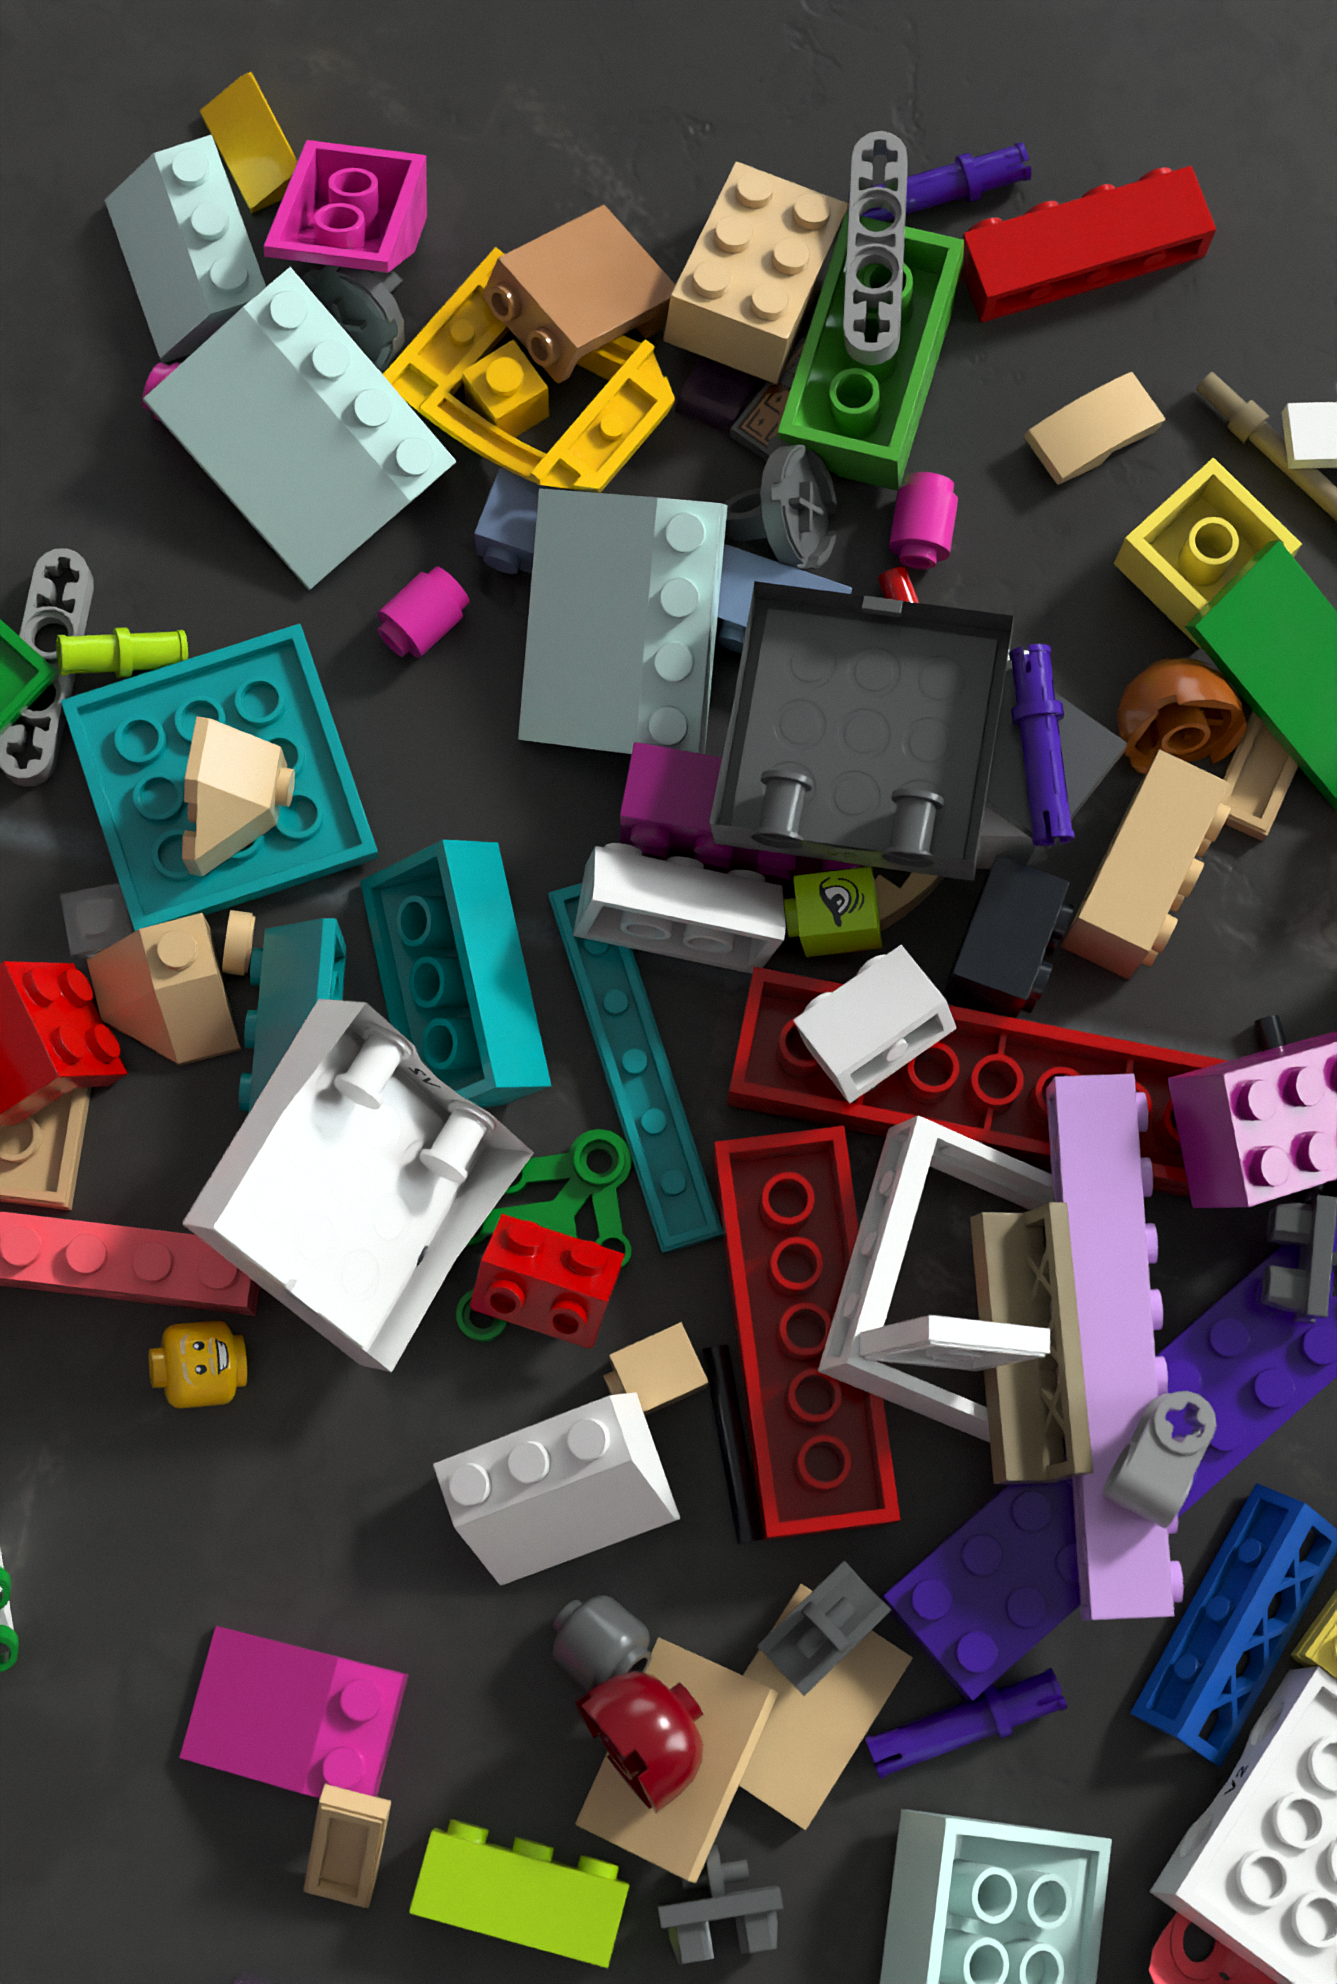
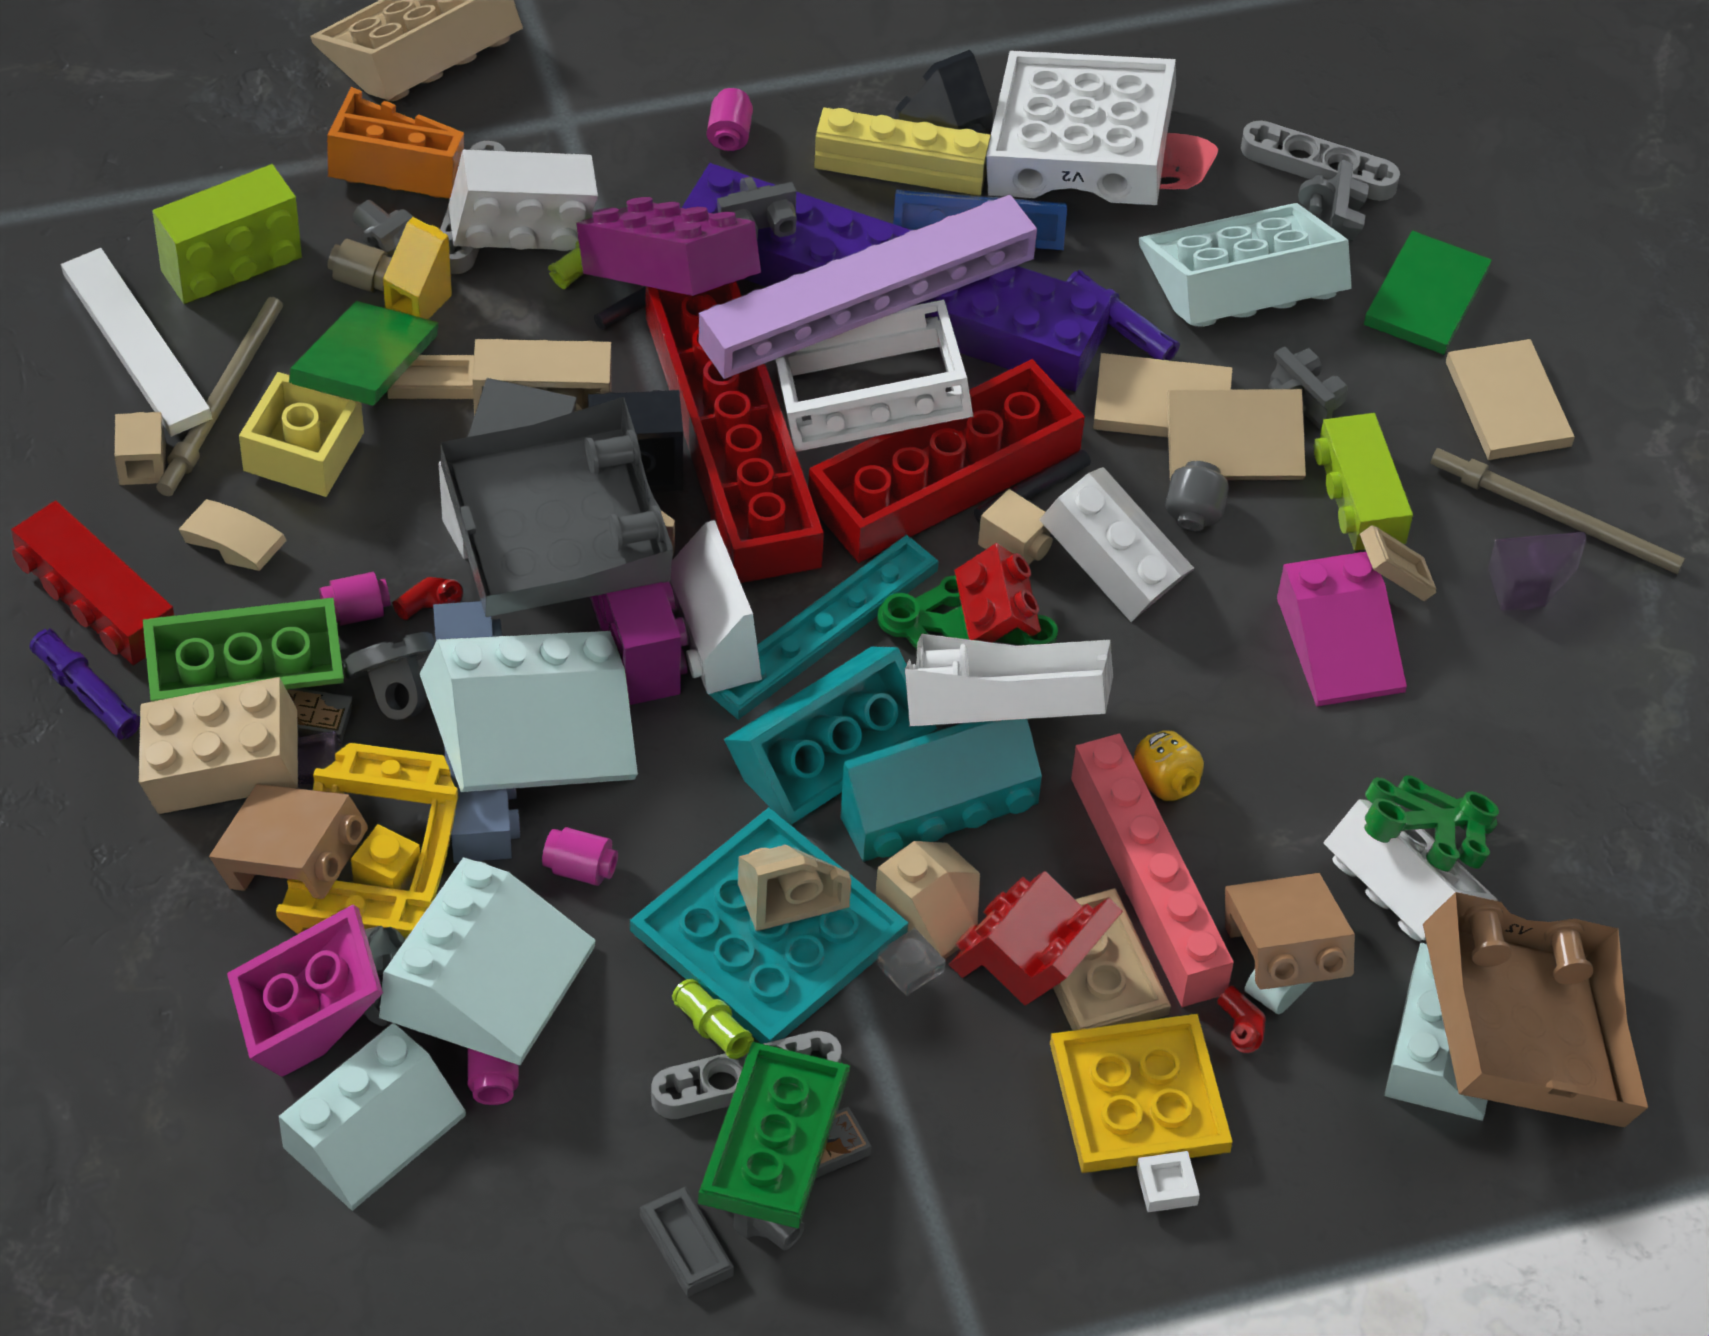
camera: 115 degrees left, 25 degrees down
(238, 943) = (870, 859): tan tile -> none
(250, 142) = (251, 1122): yellow slope -> none
(646, 1733) = (1237, 432): dark red cylinder -> none
(823, 1628) = (1116, 380): dark grey hips -> none
(835, 912) = (679, 511): lime brick -> none
(873, 247) = (173, 655): light grey beam -> none
(874, 1023) = (741, 454): white brick -> none
(954, 1343) = (926, 320): white tile -> none
(1023, 1398) = (895, 326): dark tan fence -> none
(1038, 719) = (519, 409): dark purple pin -> none
(1158, 1470) = (929, 214): light grey piece -> none
(1182, 710) = (421, 415): dark orange cylinder -> none
(1281, 369) = (139, 448): none -> tan brick

